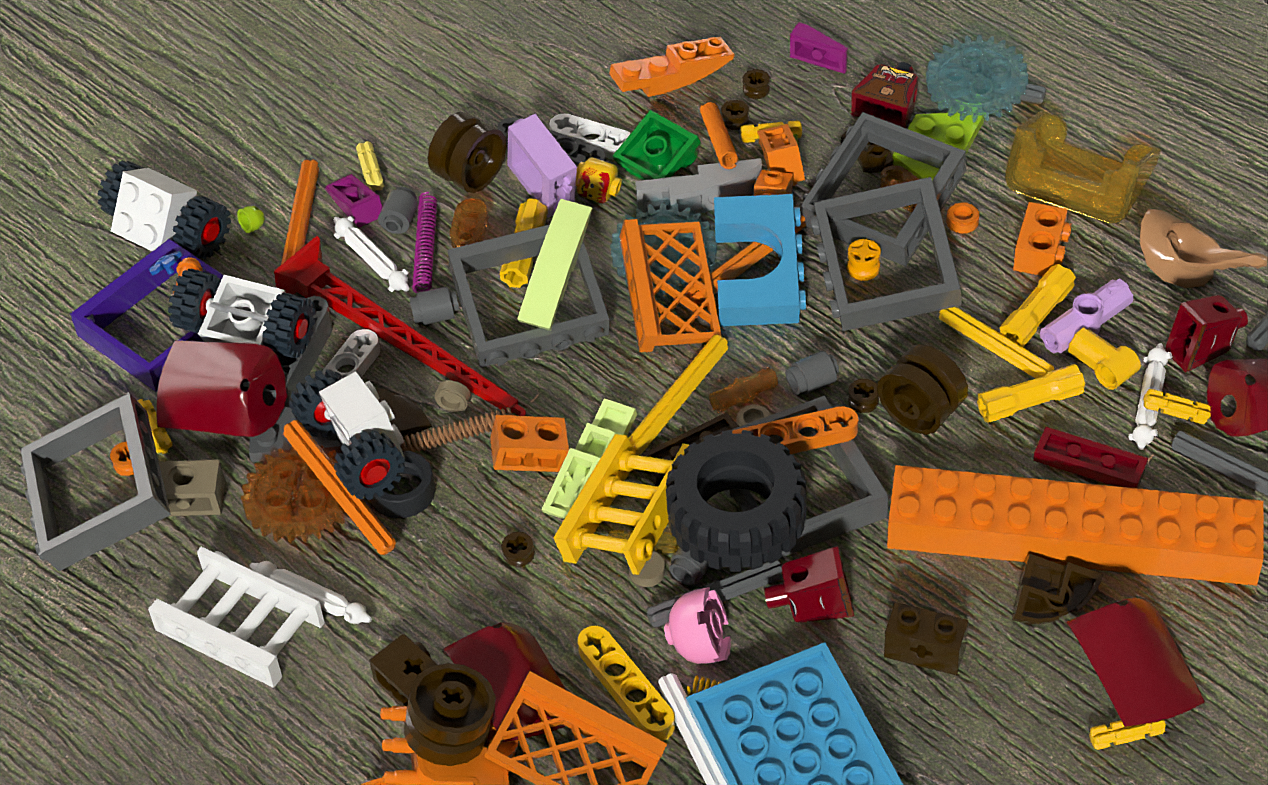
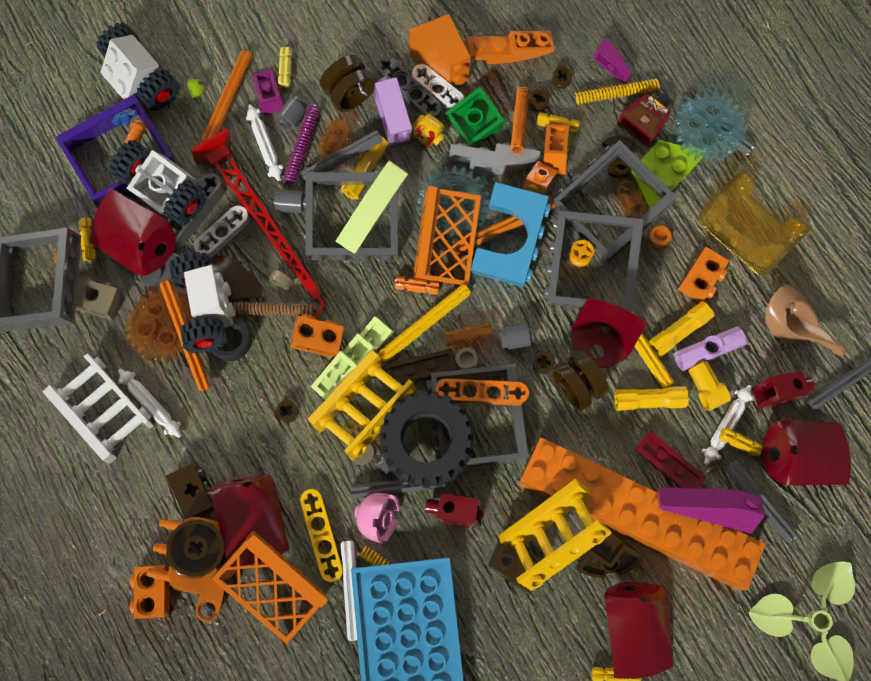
camera: 10 degrees right, 25 degrees up
(498, 225) = (345, 154): none -> dark grey axle
(580, 84) = (441, 49): none -> orange slope
(649, 355) = (417, 285): none -> orange axle
(834, 77) = (616, 93): none -> yellow piece
(938, 302) = (618, 343): none -> dark red piece
(945, 542) = (539, 520): none -> yellow fence
(1189, 469) = (715, 505): none -> magenta wedge

